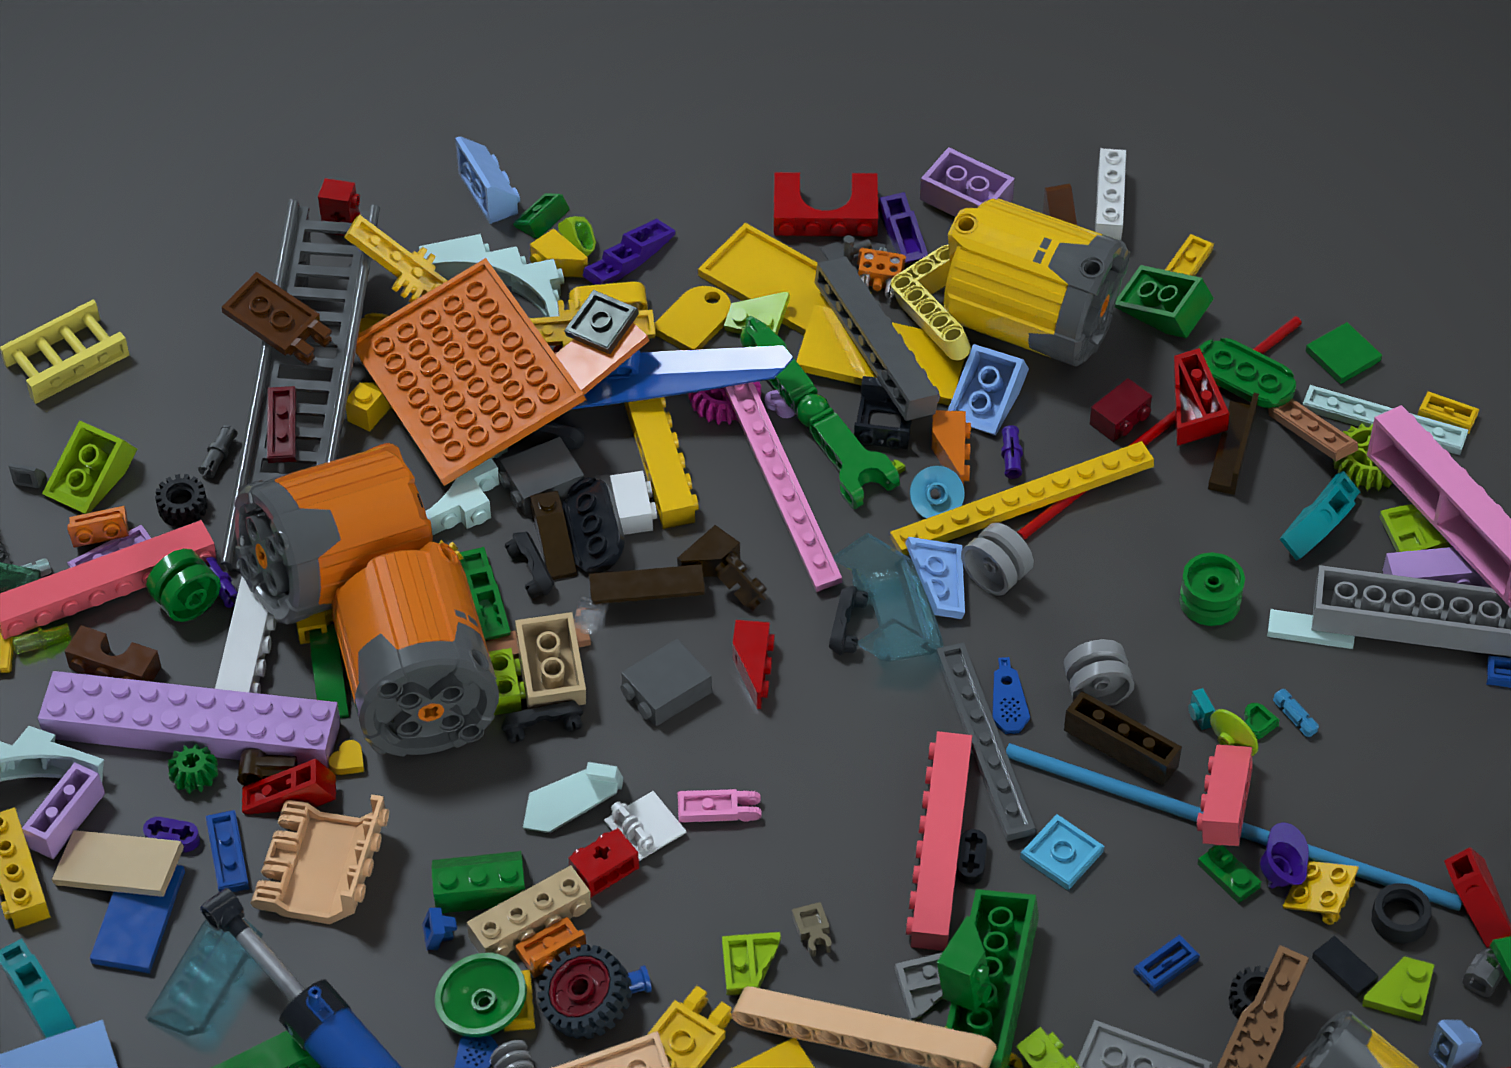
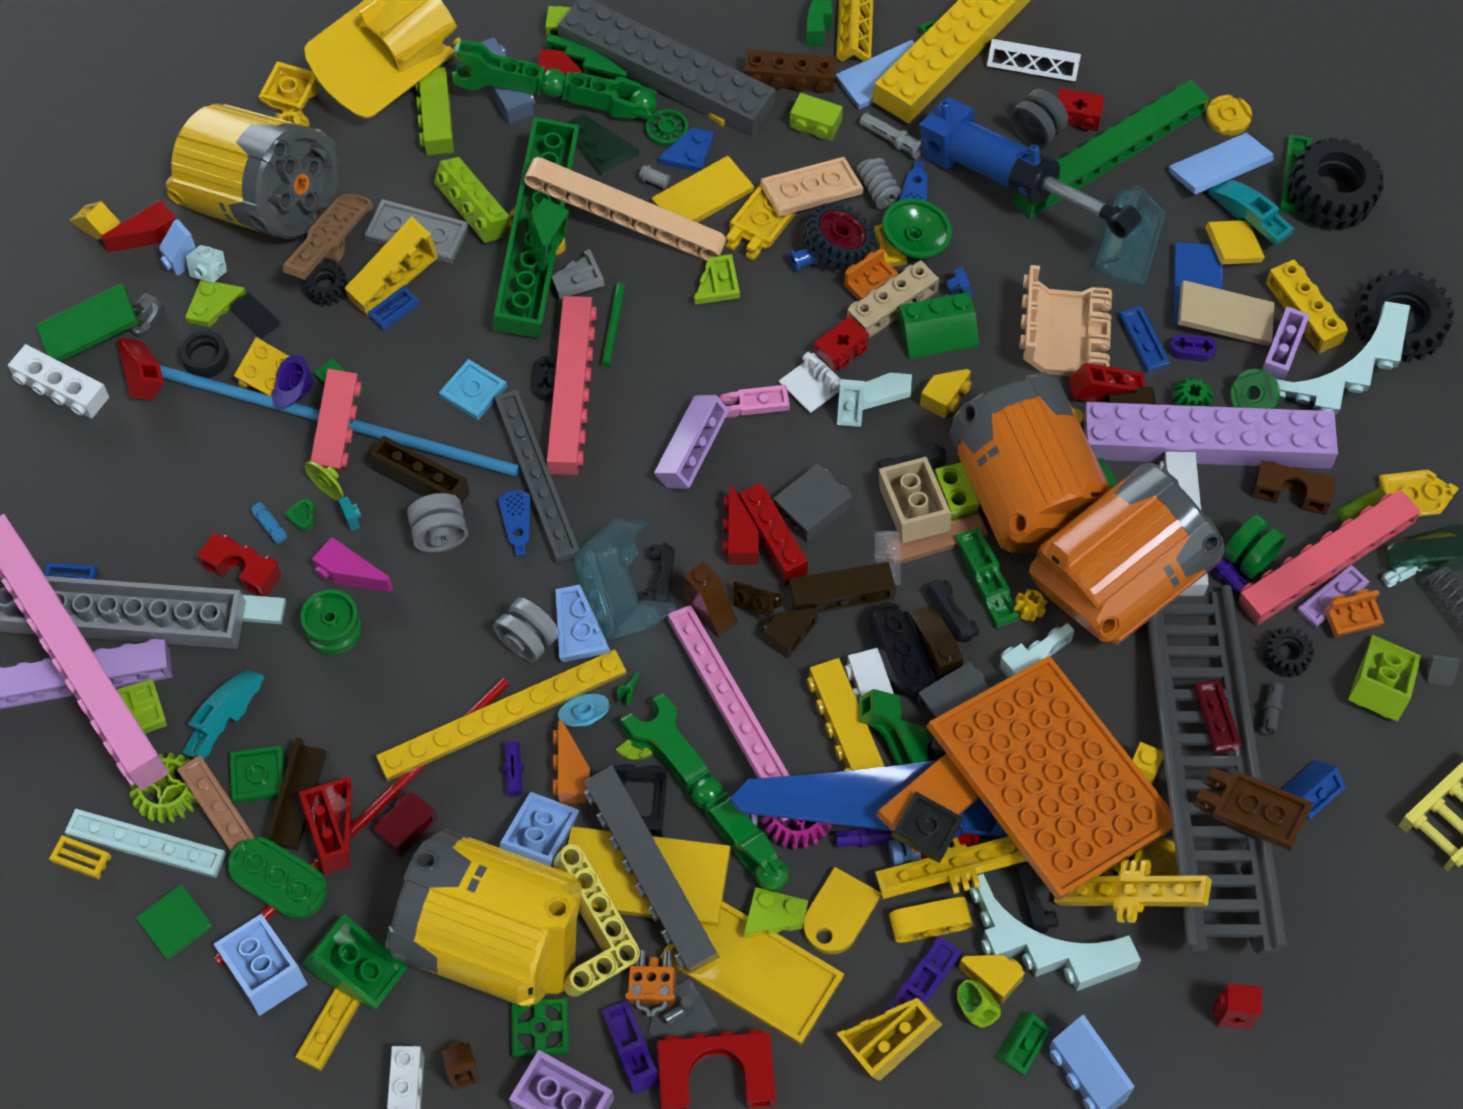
camera: 175 degrees right, 10 degrees up
(74, 957) = (1234, 242): none -> yellow tile
(119, 759) = (1251, 378): none -> green tile
(204, 383) = (1318, 784): none -> blue panel
(487, 797) = (944, 391): none -> yellow slope
(603, 443) = (905, 739): none -> green arch
(664, 205) = (890, 1037): none -> yellow wedge
(716, 650) = (774, 534): none -> red brick
(798, 579) = (708, 599): none -> reddish brown slope
(800, 753) = (691, 441): none -> lavender brick
(812, 925) = (670, 311): dark tan plate -> none
(885, 921) = (612, 325): none -> green bar
(888, 518) = (626, 691): none -> green hand
(1168, 993) = (393, 266): none -> yellow wedge
(1197, 650) = (349, 569): none -> dark pink slope
(1254, 304) = (260, 964): none -> light blue slope
(1277, 470) = (256, 774): none -> green tile
(1340, 676) = (224, 553): none -> red arch
(1425, 1021) = (206, 263): none -> light aqua brick

